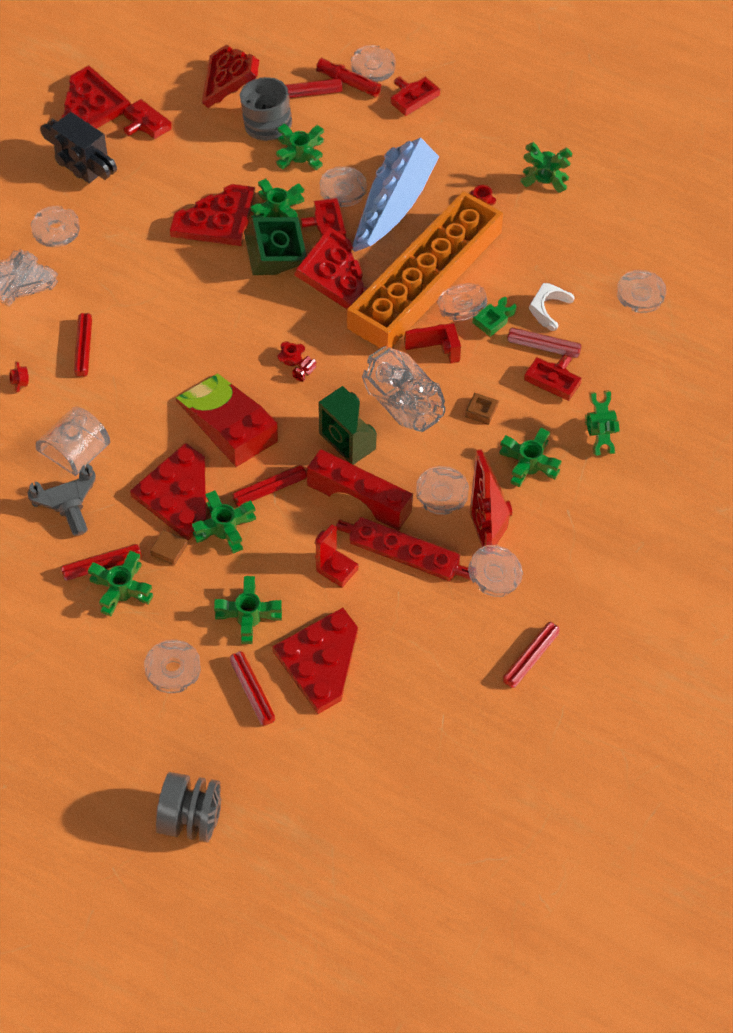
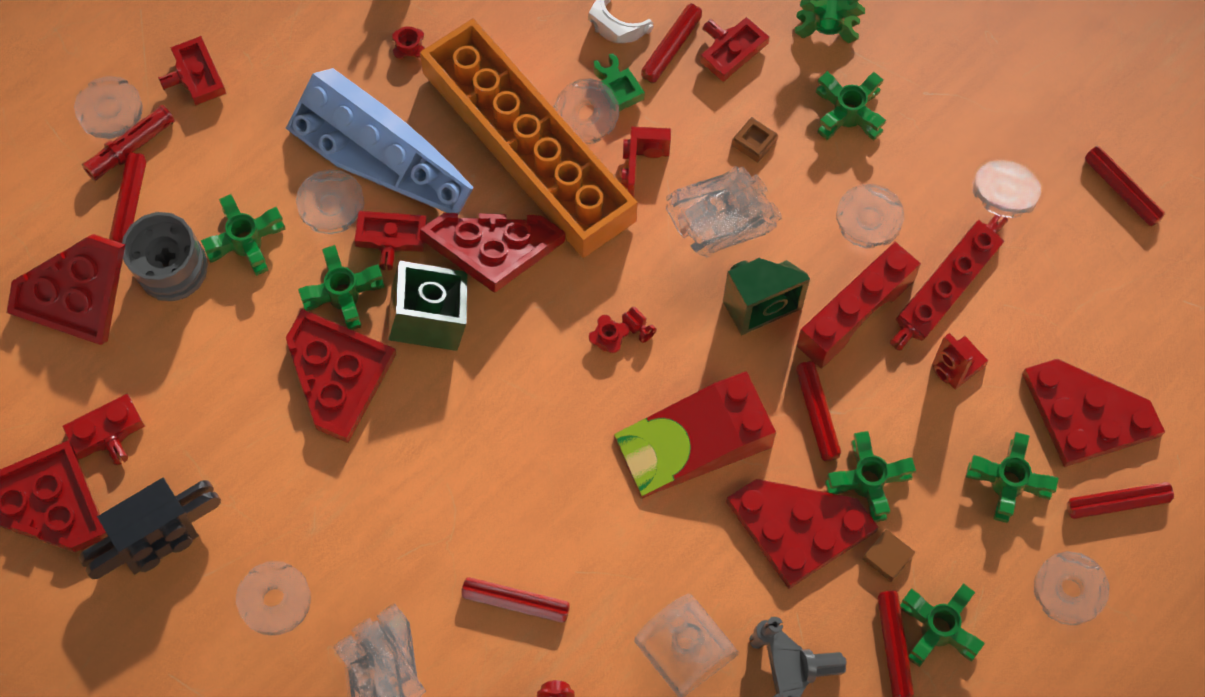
camera: 75 degrees left, 10 degrees up
(488, 506) = (939, 163): red wedge -> none

